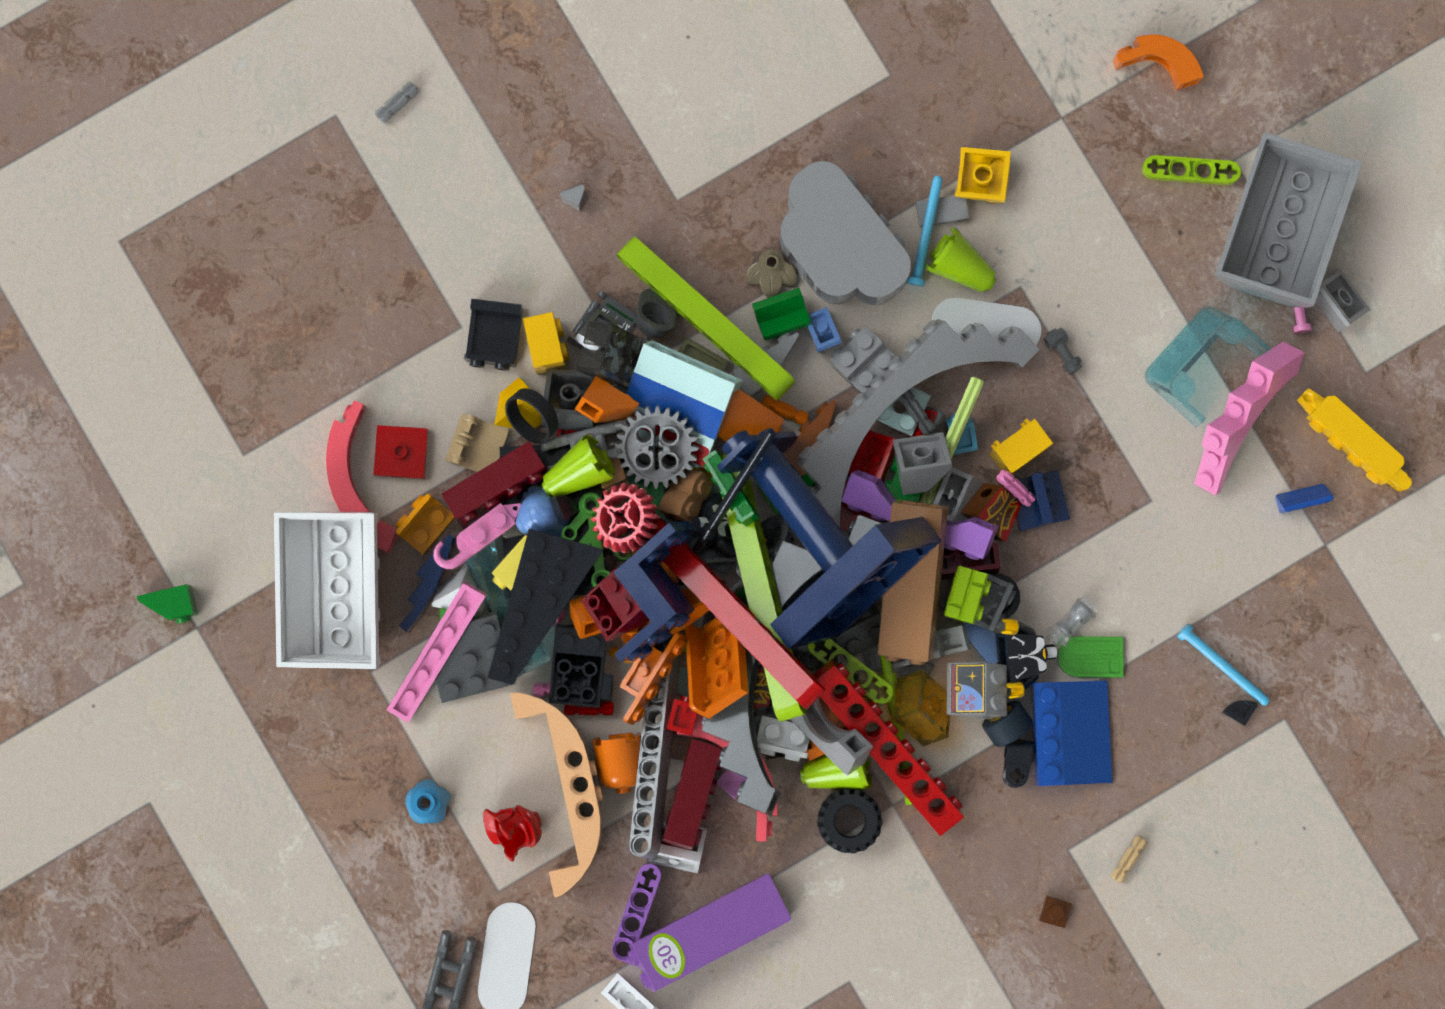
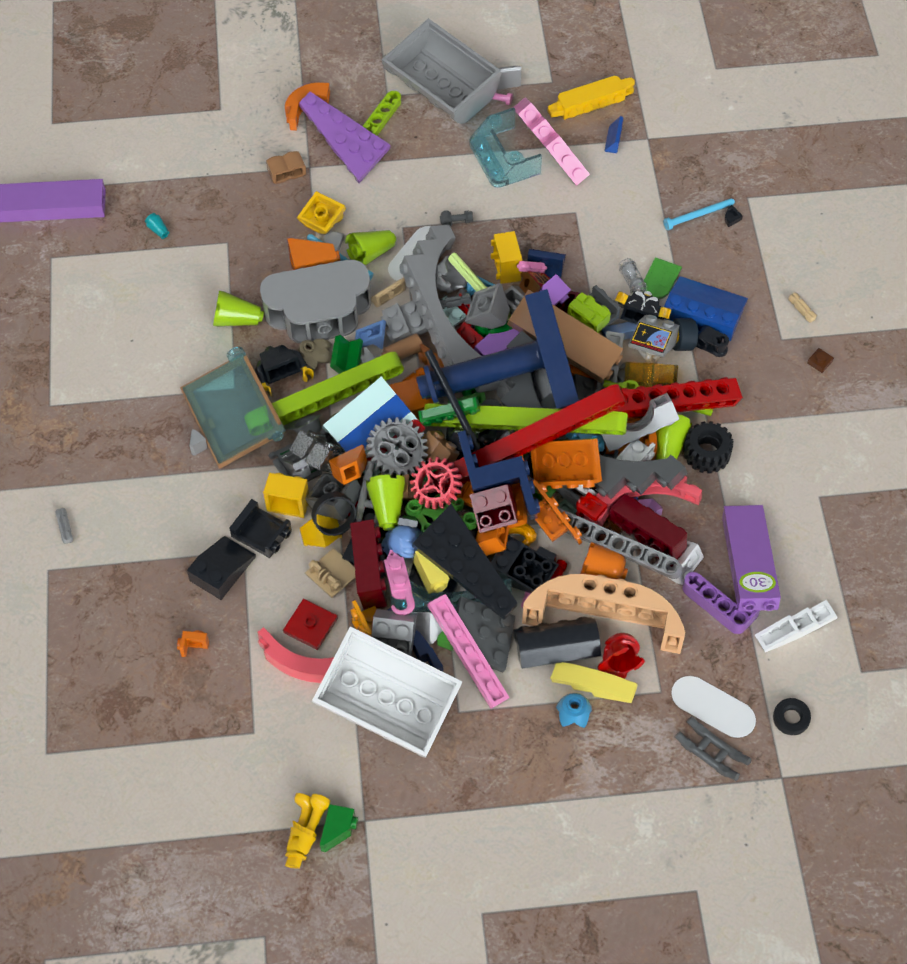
camera: 65 degrees left, 25 degrees down
(143, 569) = (303, 832): none -> yellow piece
(320, 332) = (193, 639): none -> orange bracket
(411, 558) = (395, 630): none -> light grey slope
(426, 312) = (220, 567): none -> black slope
(469, 811) = (594, 681): none -> light yellow slope
(501, 747) = (557, 642): none -> black brick
(637, 216) = (233, 409): none -> clear light blue door
(725, 238) = (280, 363): none -> black torso
(779, 145) = (236, 311): none -> lime cone
(823, 378) = (404, 347): none -> medium nougat brick
(897, 201) = (310, 253): none -> orange slope
(903, 317) = (389, 293): none -> tan slope
(953, 383) = (448, 277): none -> light grey helmet
(1041, 88) = (286, 167): none -> medium nougat brick
(1121, 155) = (348, 139): none -> medium lavender wing

